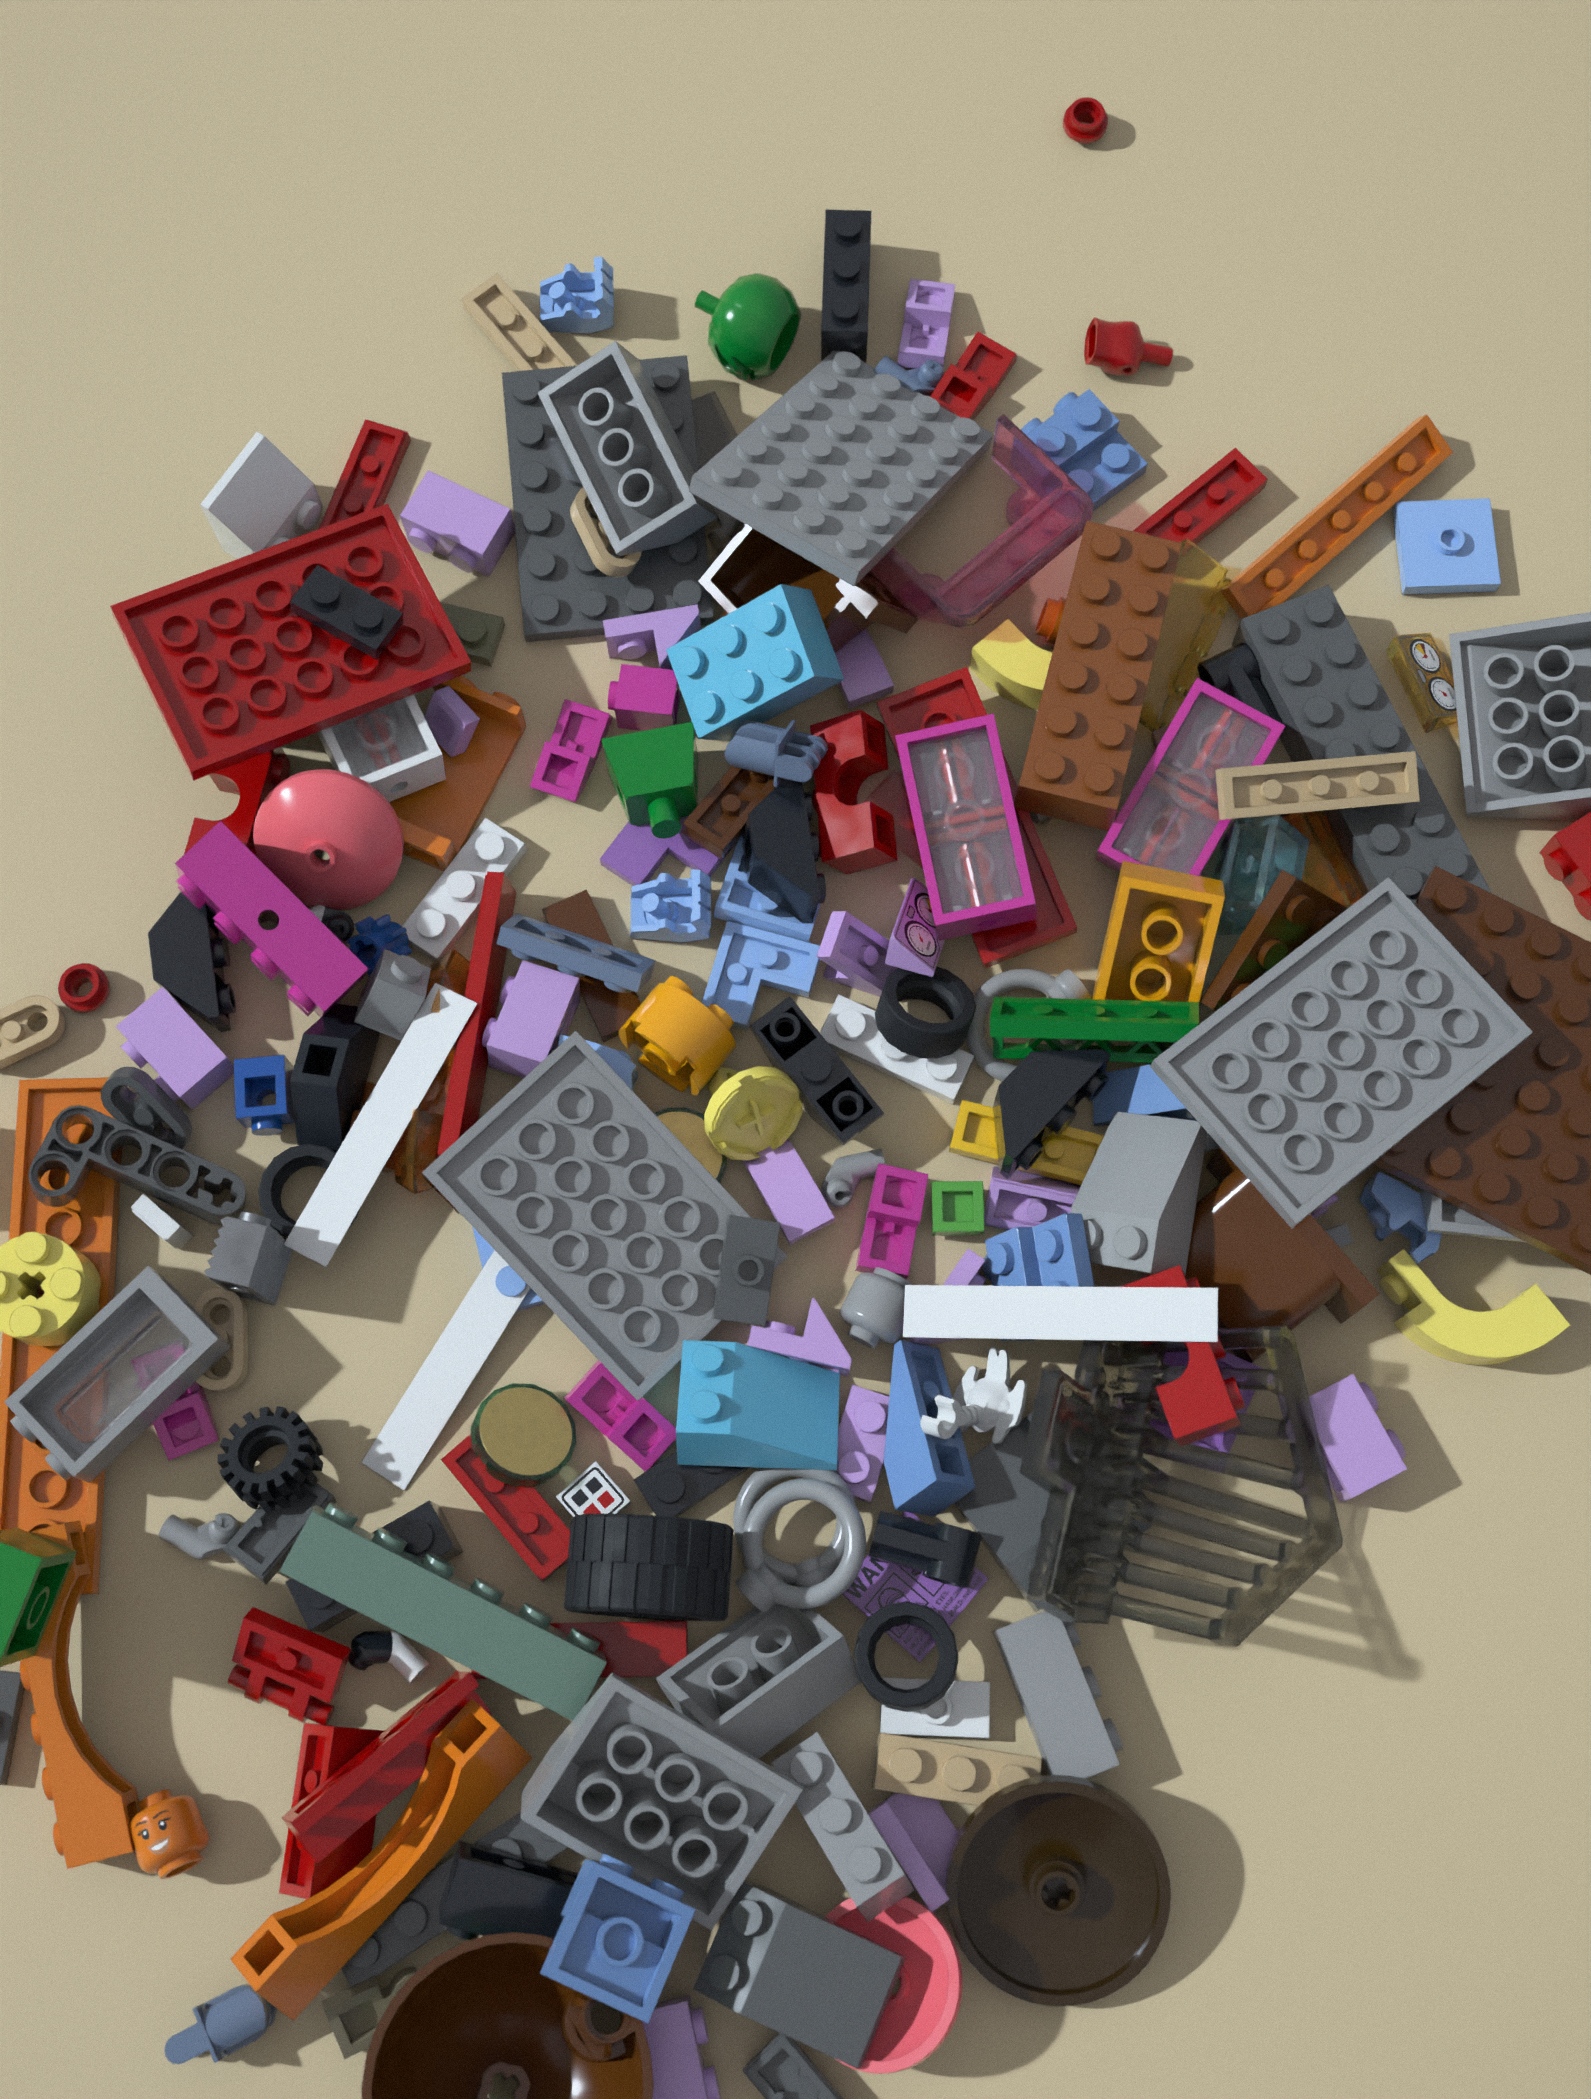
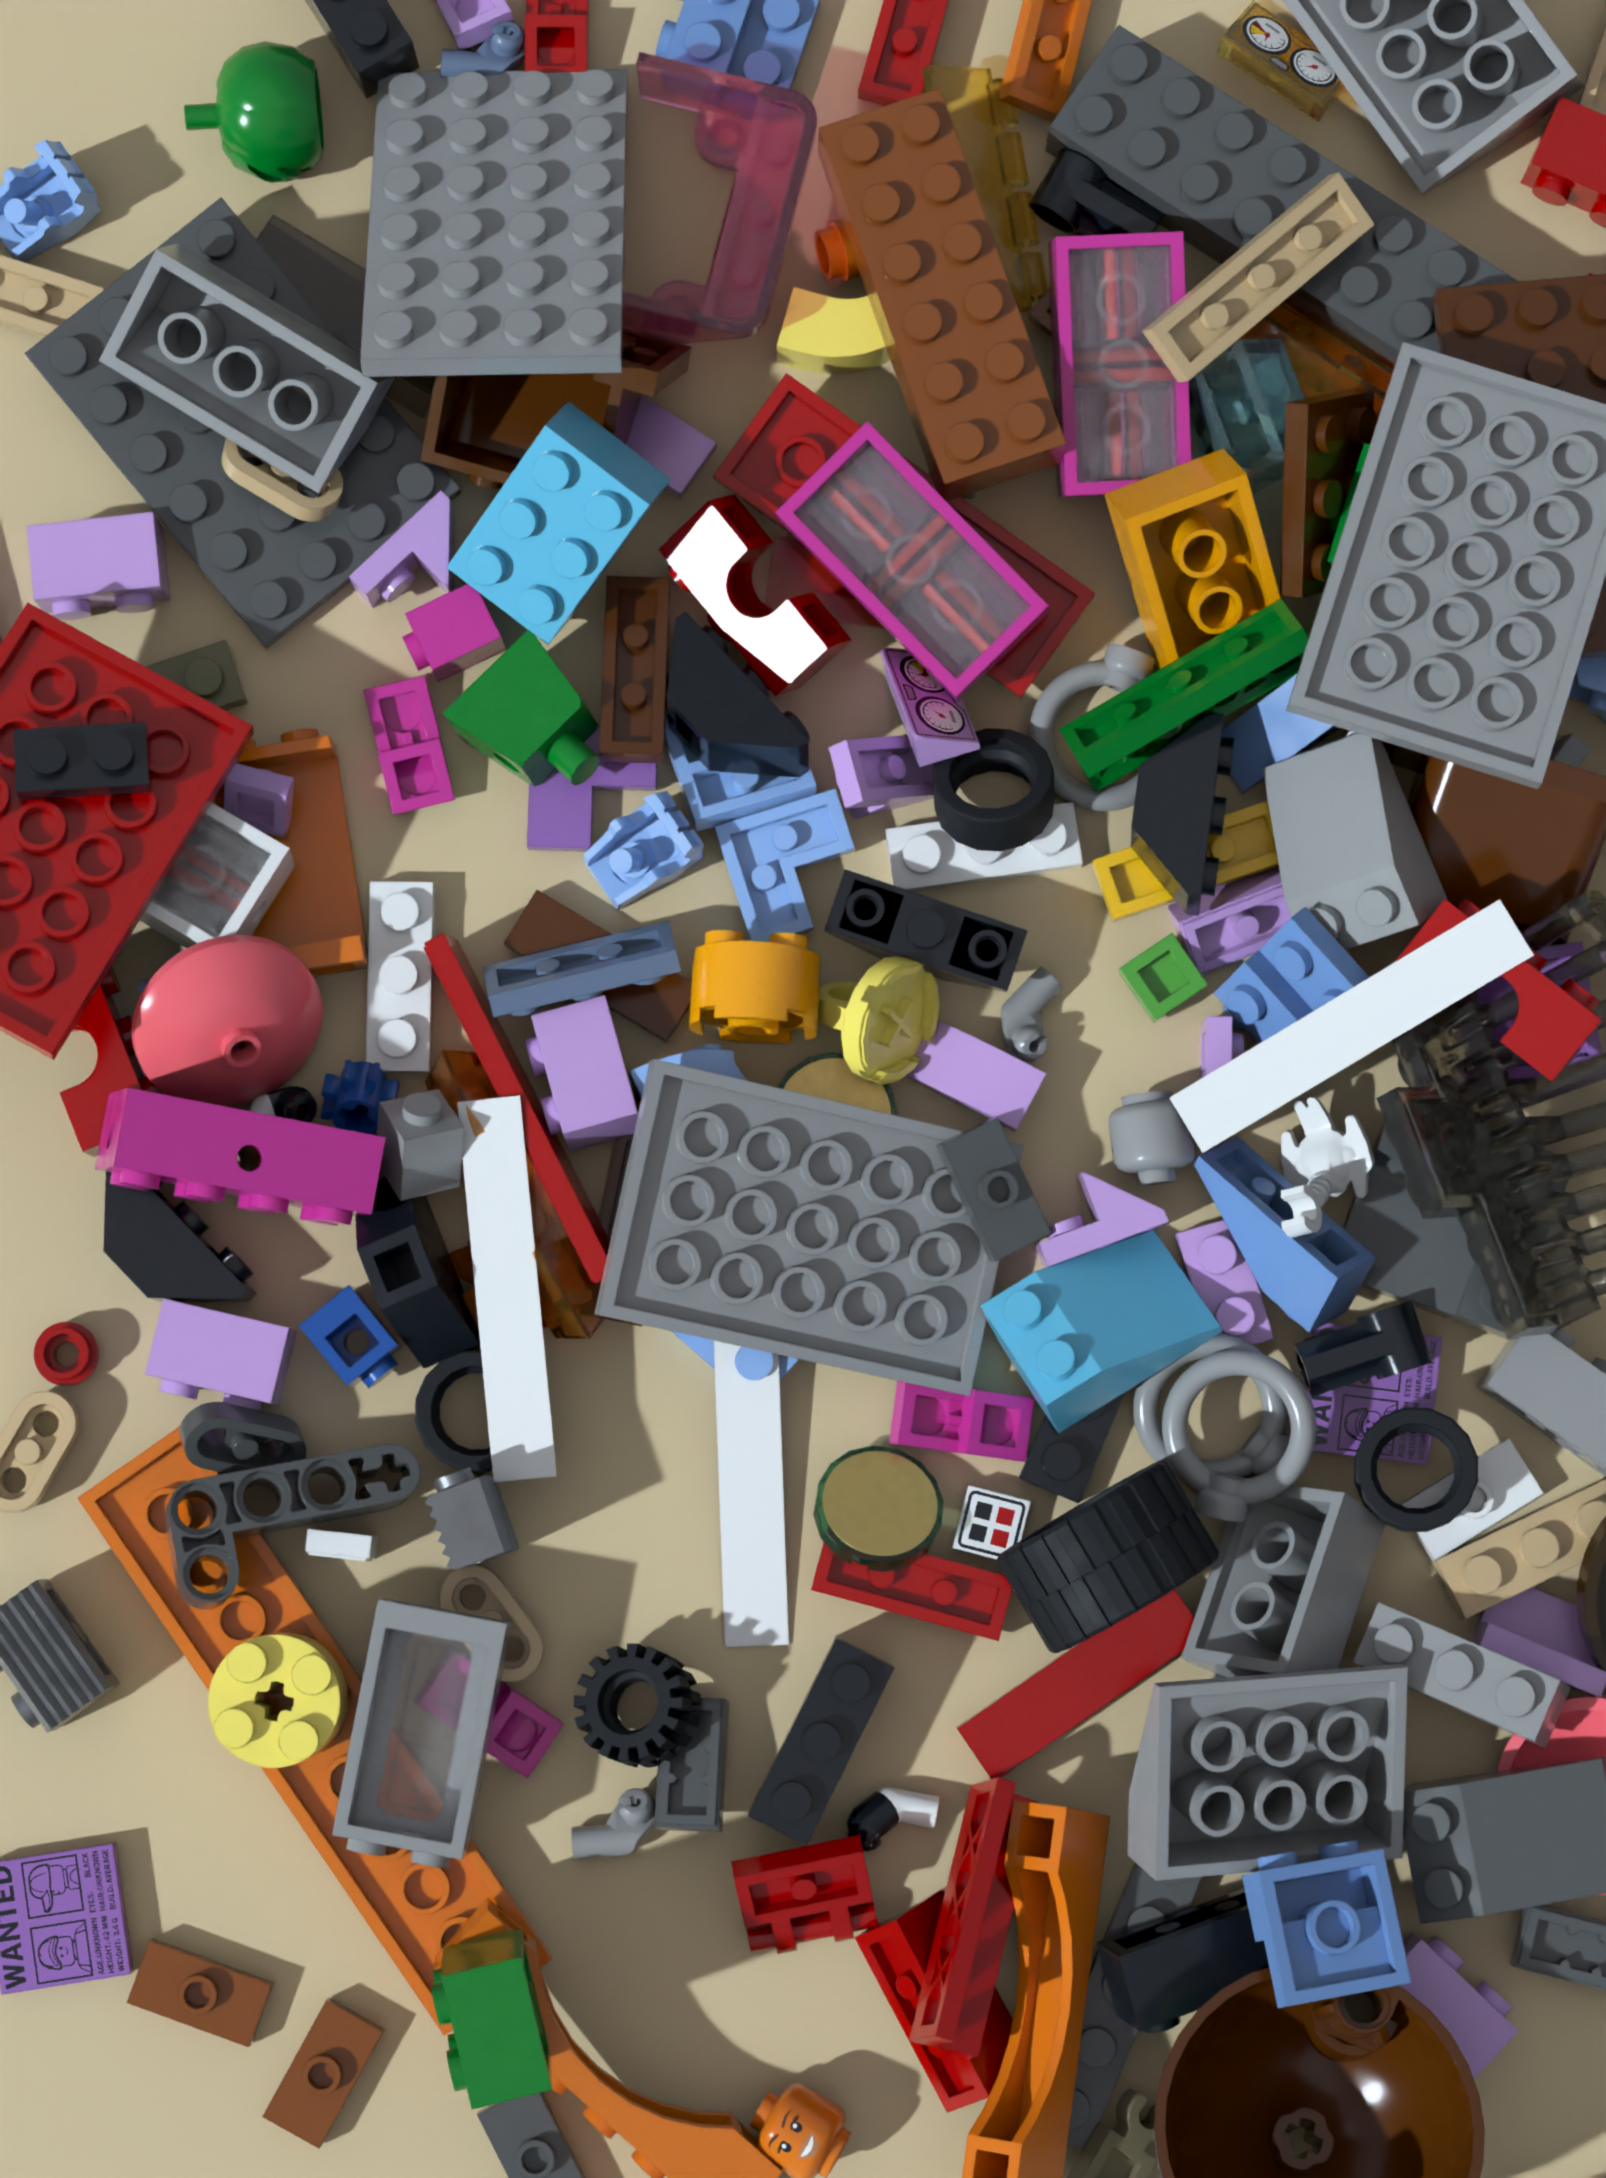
camera: 35 degrees left, 10 degrees up
(444, 1611) = (932, 1736): sand green brick -> none
(776, 751) = (648, 606): sand blue arm -> none
(892, 1220) = (1103, 1036): dark pink slope -> none

